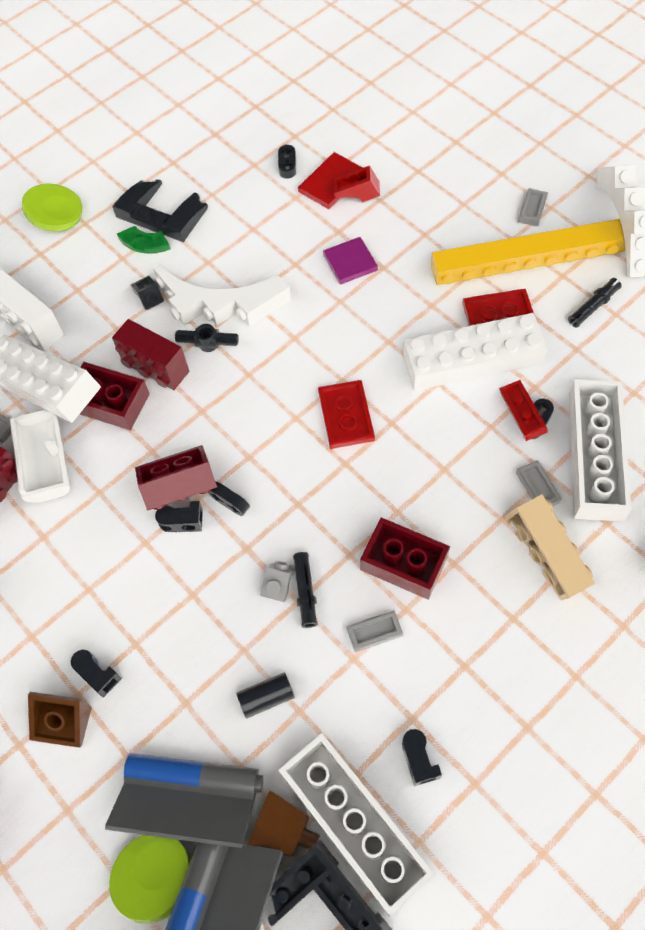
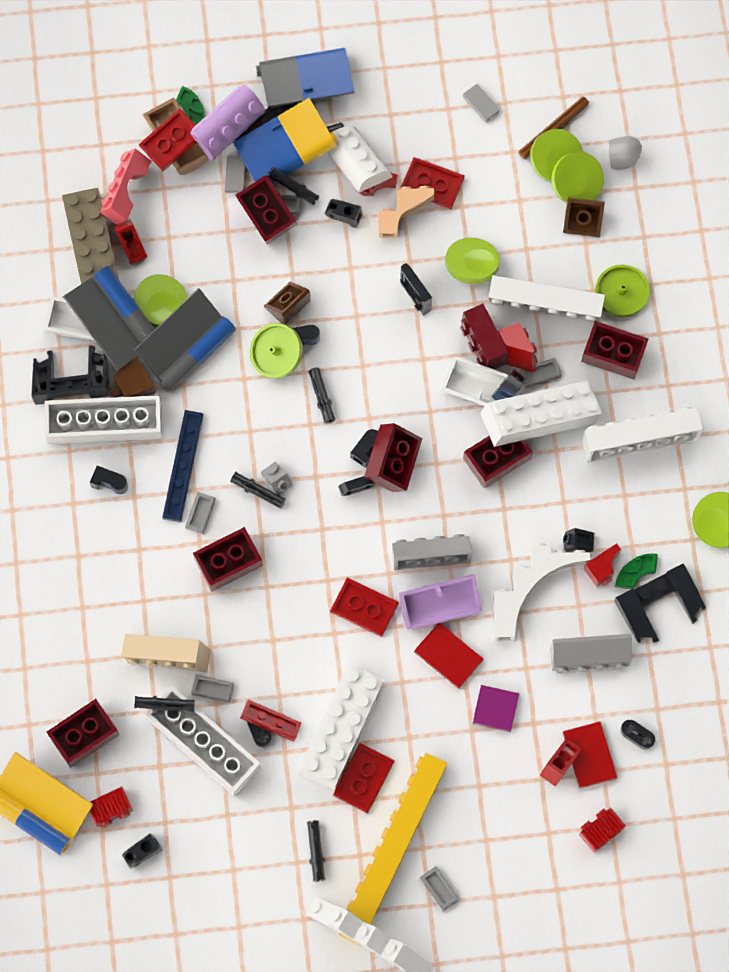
camera: 120 degrees right, 10 degrees up
(26, 422) = (509, 386): none -> black leg
(129, 683) = (276, 350): none -> lime piece
(150, 354) = (508, 502): dark red brick -> none
(150, 603) = (324, 402): none -> black pin
(161, 254) = (600, 567): none -> red arch
(206, 337) = (506, 547): black axle -> none
(244, 220) = (591, 652): none -> light grey slope
(248, 386) = (431, 552): none -> light grey slope
(265, 695) = (212, 423): black brick -> none
(293, 350) = (440, 602): none -> lavender container
(333, 321) = (448, 655): none -> red tile
(335, 691) = (182, 466): none -> dark blue tile
(385, 135) = (602, 829): none -> red brick
(613, 502) = (164, 704): none -> black pin

